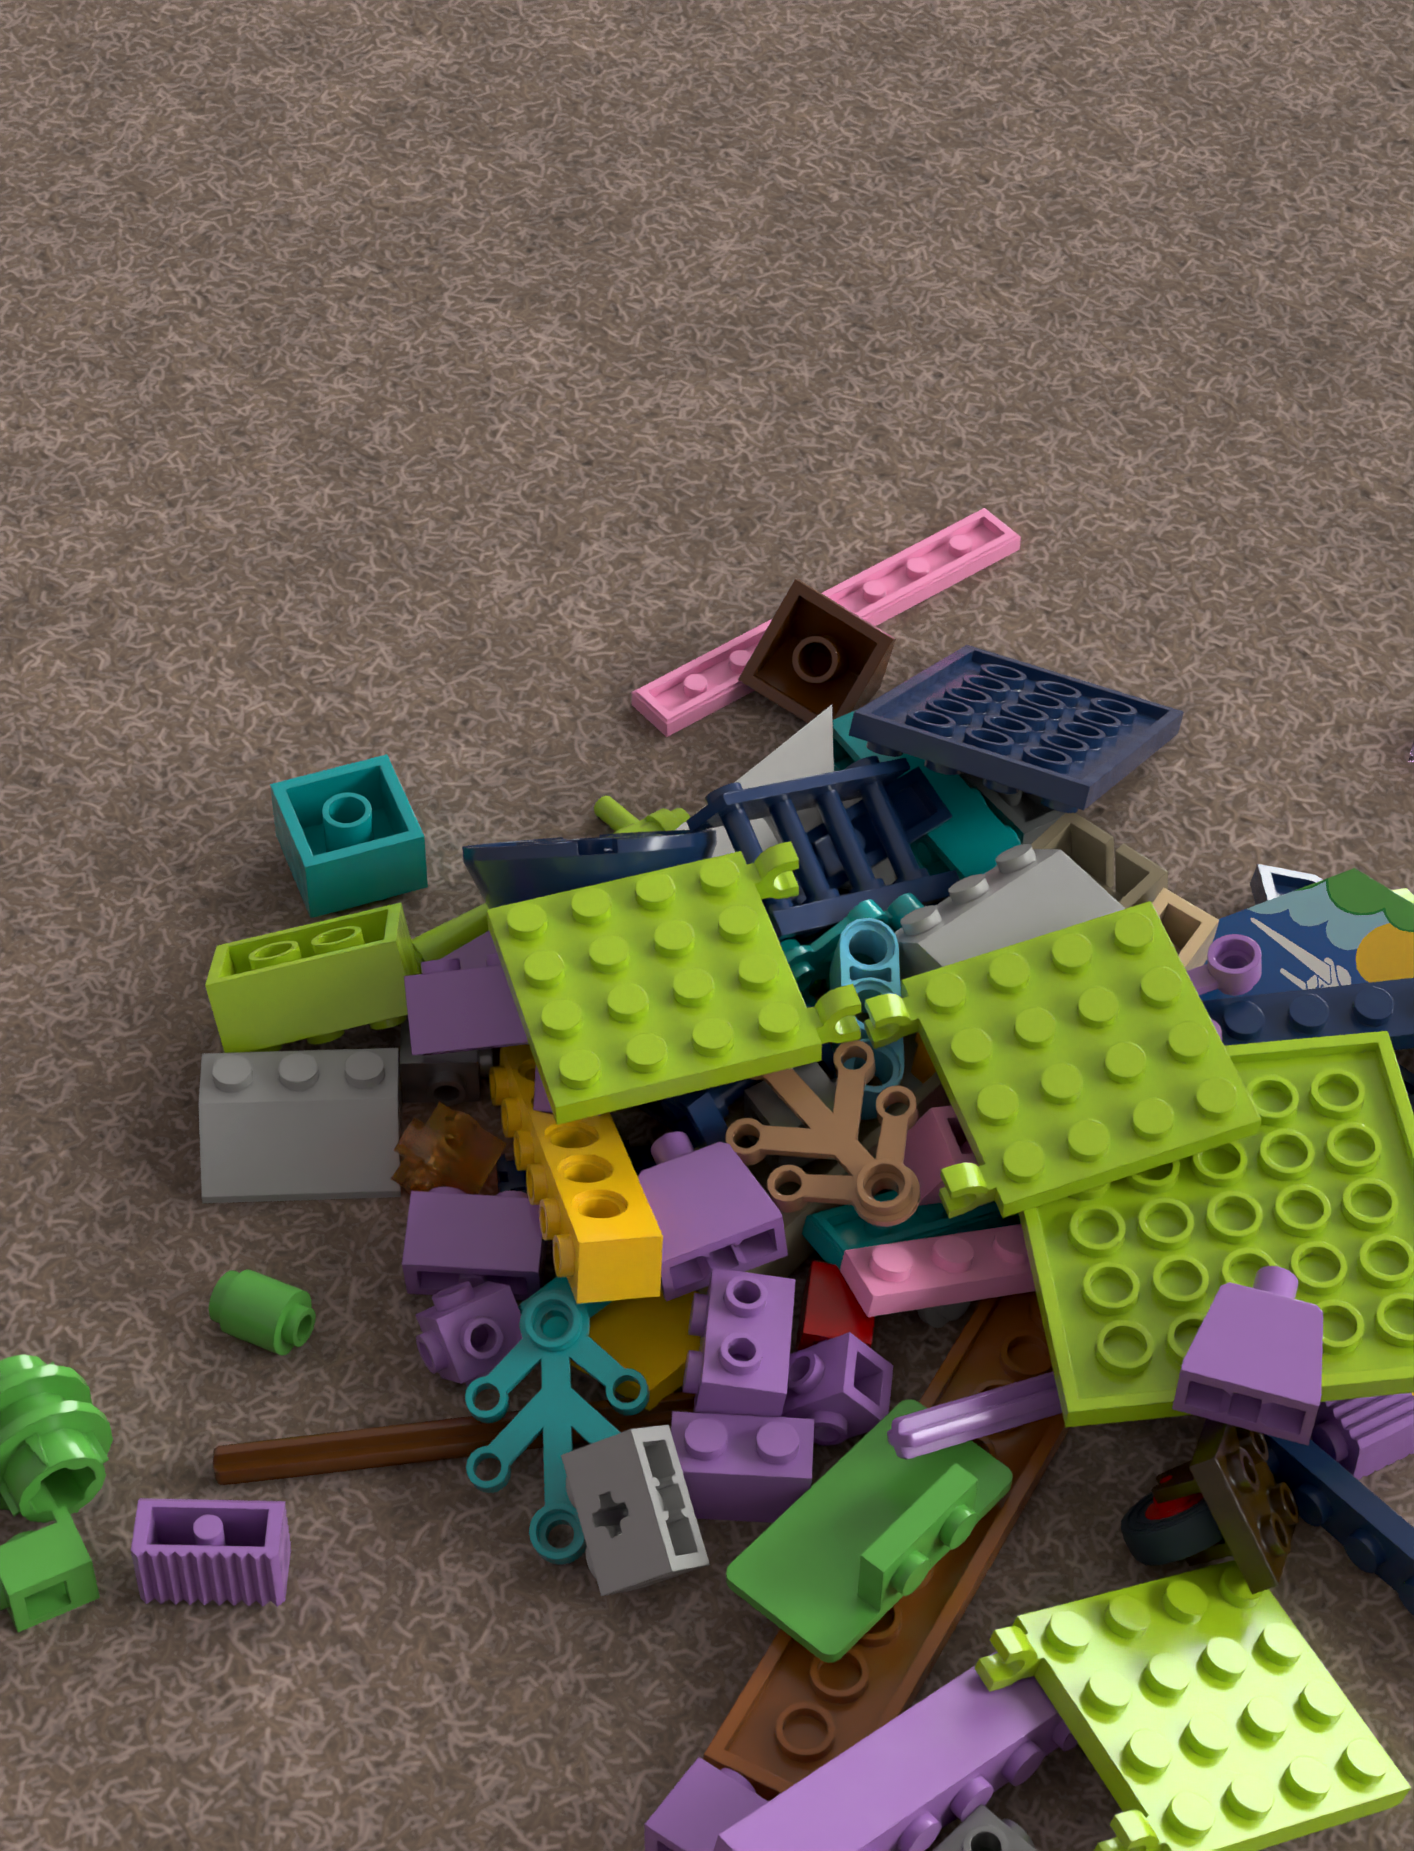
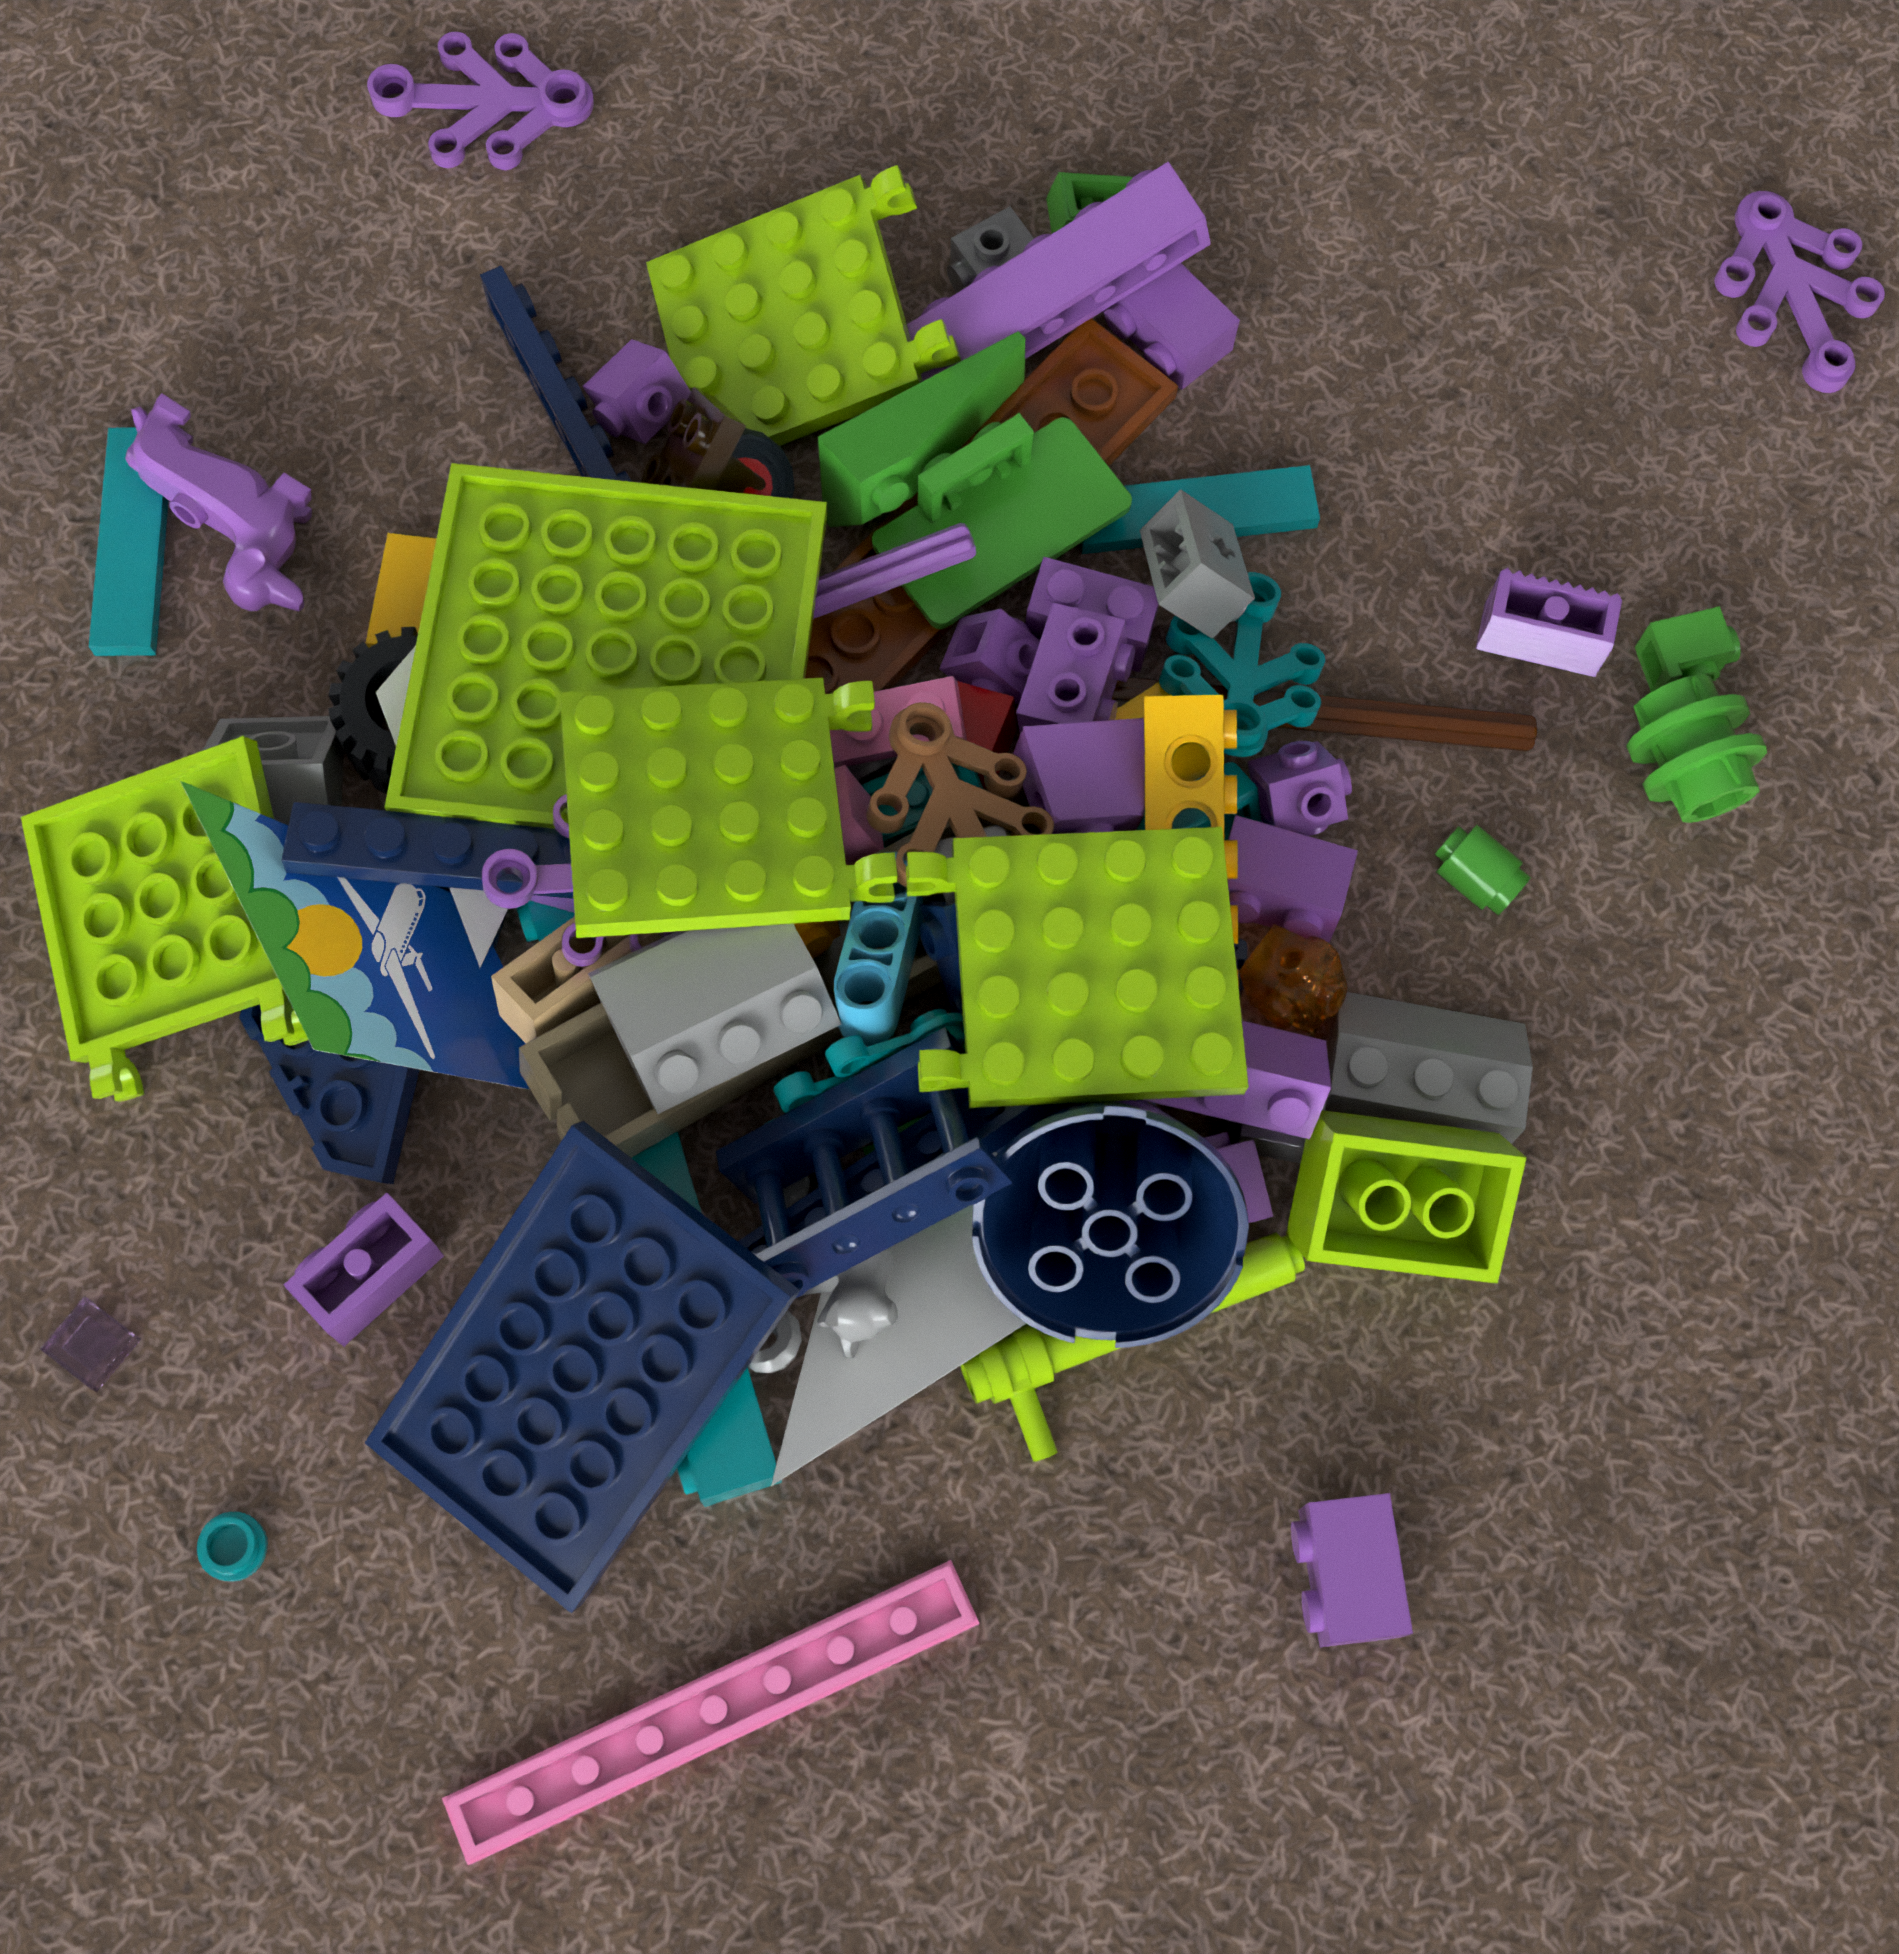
camera: 170 degrees left, 25 degrees up
(316, 733) = (1351, 1570): none -> medium lavender brick
(349, 835) = (1340, 1427): teal brick -> none
(629, 1644) = (1249, 500): none -> teal tile
(818, 656) = (764, 1589): reddish brown slope -> none
(1021, 1537) = (877, 456): none -> bright green wedge
(1240, 798) = (363, 1269): none -> medium lavender brick
(1257, 1359) = (657, 482): medium lavender torso -> none
(1258, 641) = (232, 1546): none -> teal plate
(1345, 1602) = (636, 391): none -> medium lavender brick

